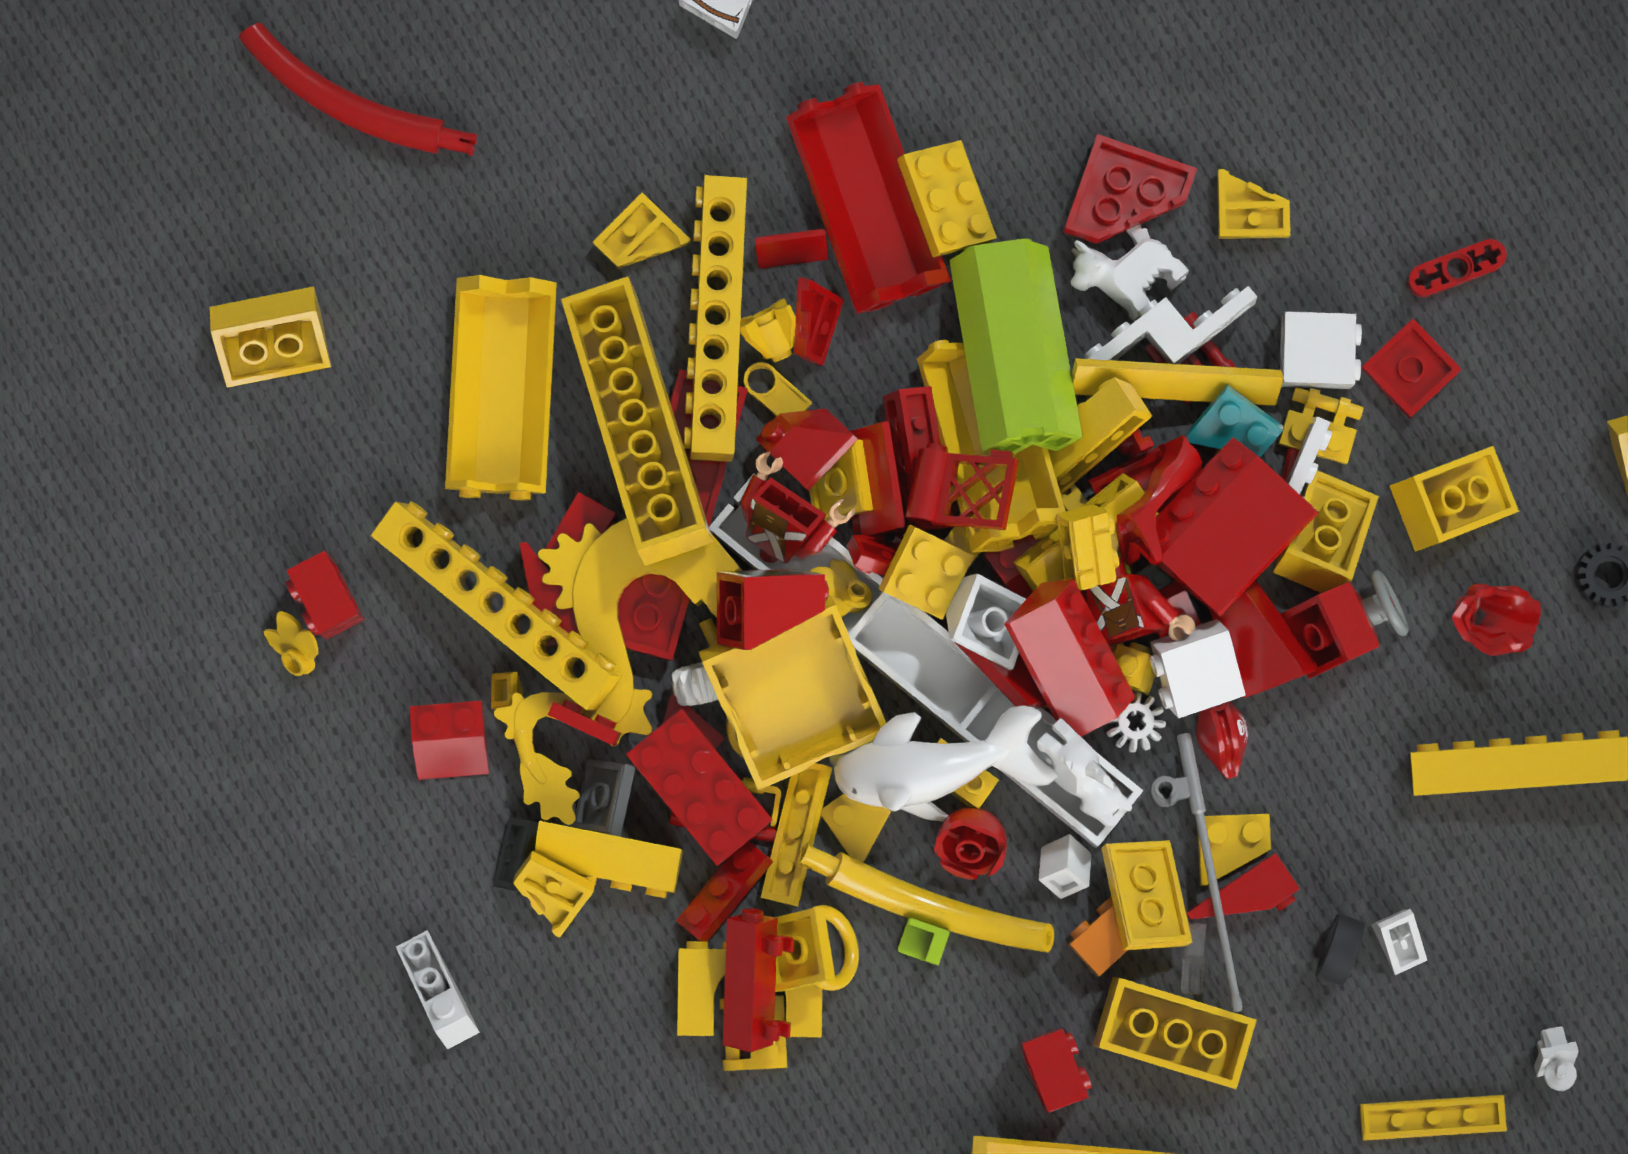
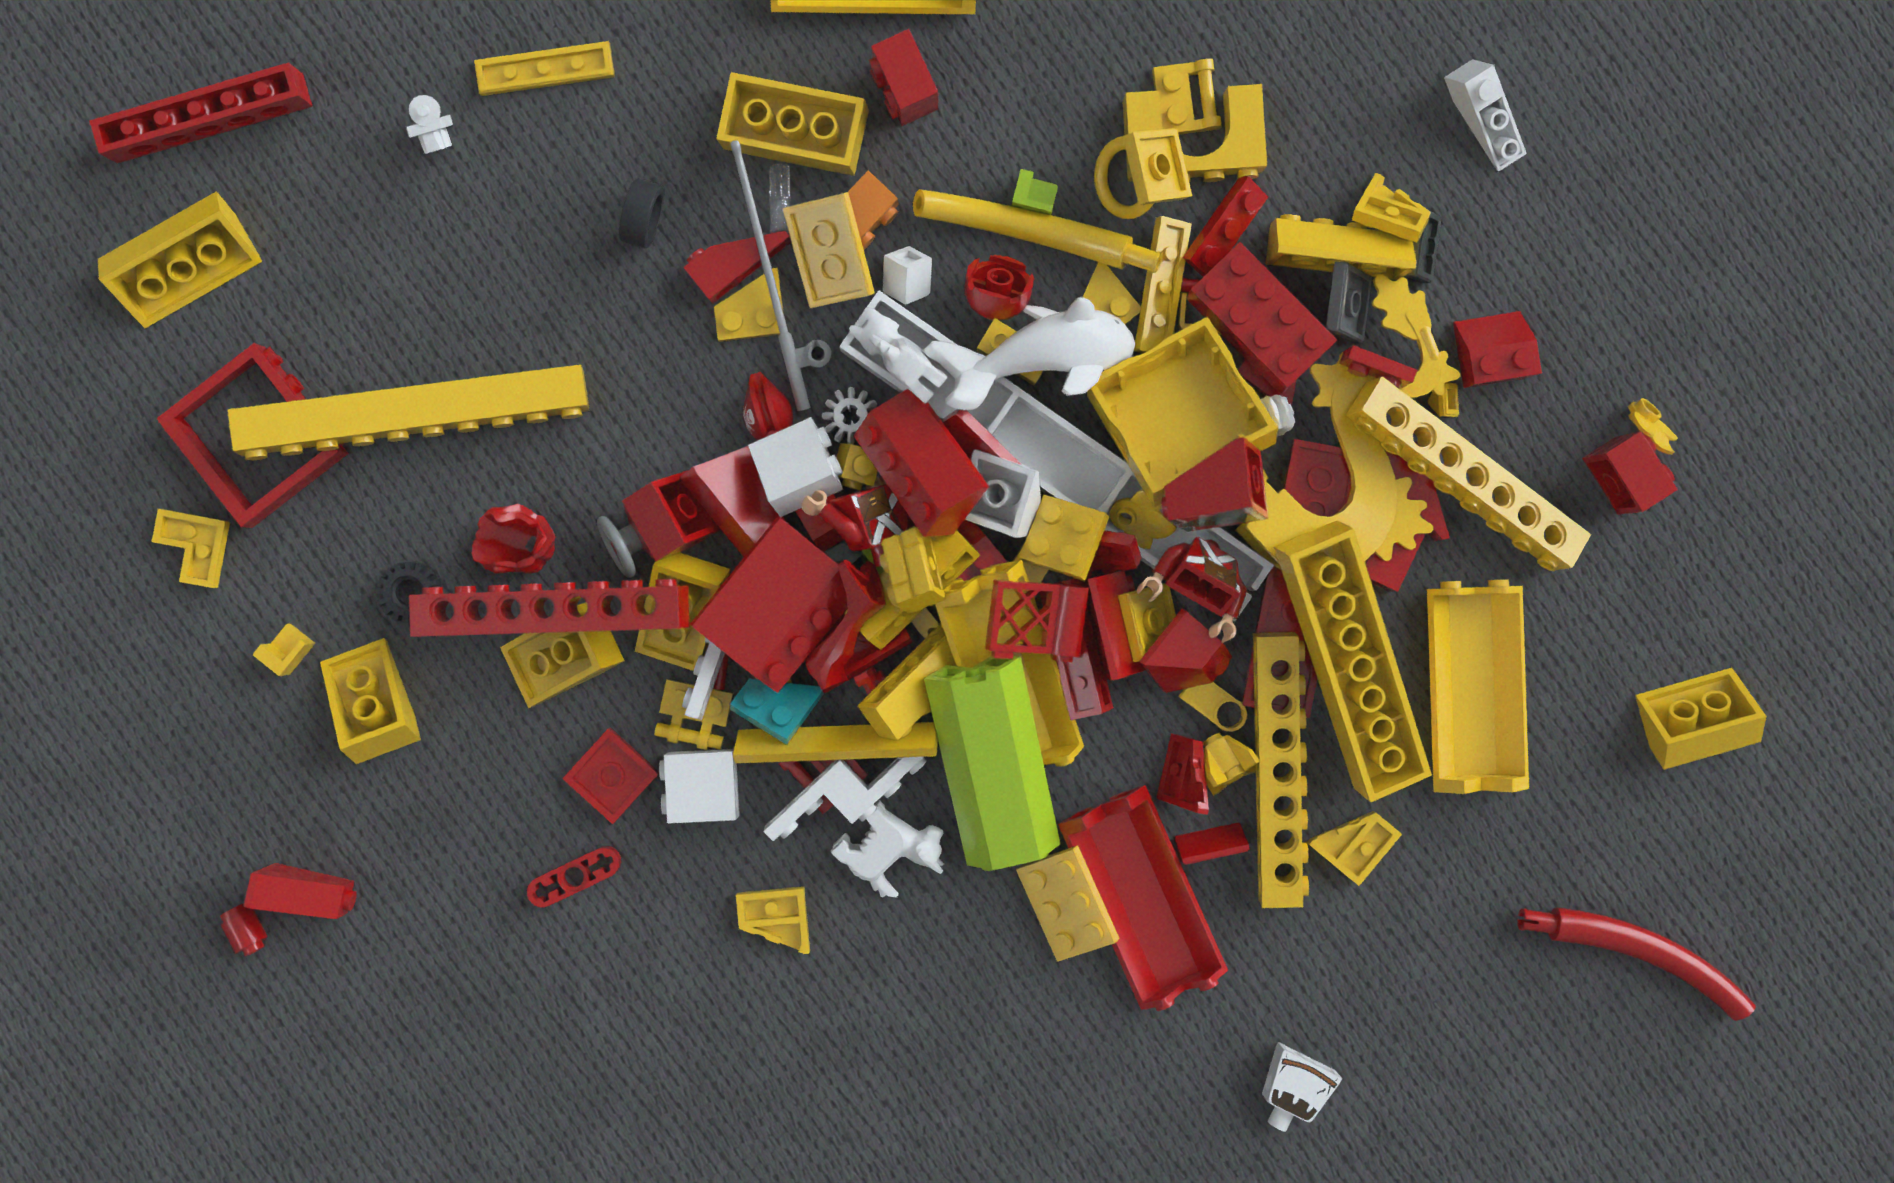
camera: 175 degrees left, 5 degrees up
(751, 981) = (1199, 134): red brick -> none
(1125, 189) = (897, 926): red plate -> none
(1400, 940) = (586, 231): white slope -> none
(1585, 539) = (430, 618): none -> red brick

